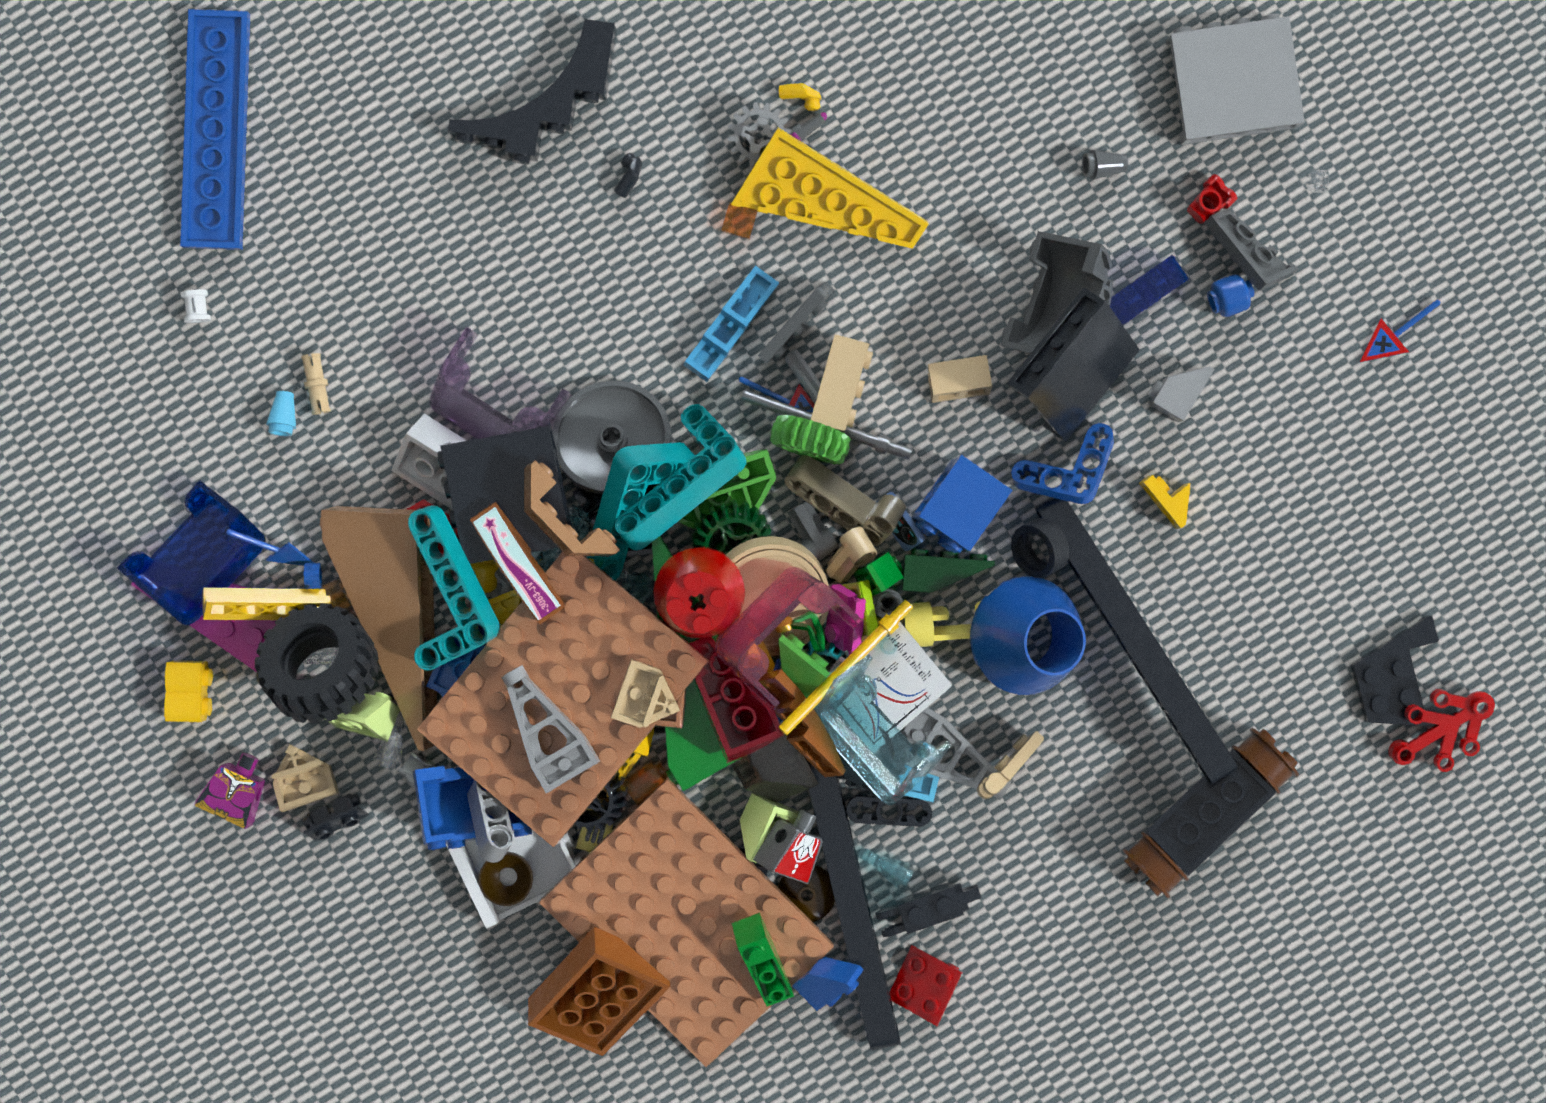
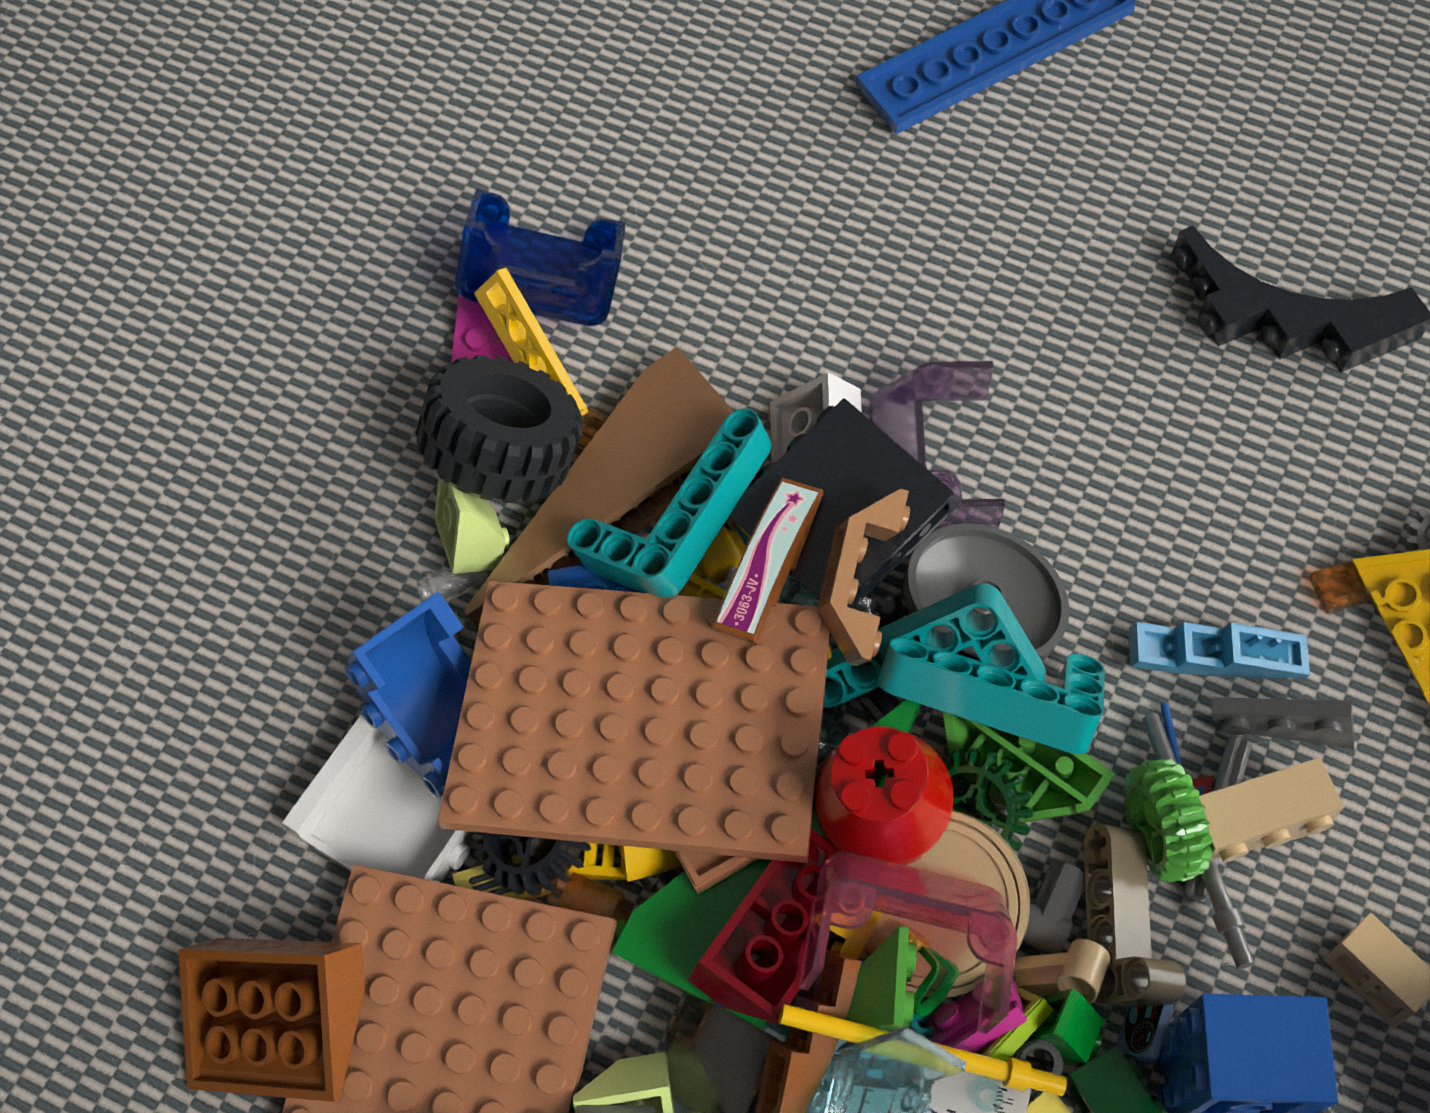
camera: 60 degrees right, 25 degrees down
(187, 691) = (380, 343): yellow brick -> none
(195, 306) = (805, 123): white bush -> none
(234, 792) = (290, 453): torso -> none
(282, 415) = (751, 262): medium azure cone -> none
(287, 554) = (602, 346): blue piece -> none
(302, 780) = (348, 518): tan slope -> none
(312, 575) = (596, 389): blue axle -> none
(316, 383) = (809, 275): tan pin -> none
(322, 824) = (309, 568): black hinge -> none
(489, 829) = (416, 737): light grey beam -> none
(501, 893) = (351, 792): dark brown piece -> none
(565, 763) = (563, 762): light grey plate -> none
(631, 176) = (1298, 437): black arm -> none
(643, 696) = (707, 802): tan slope -> none

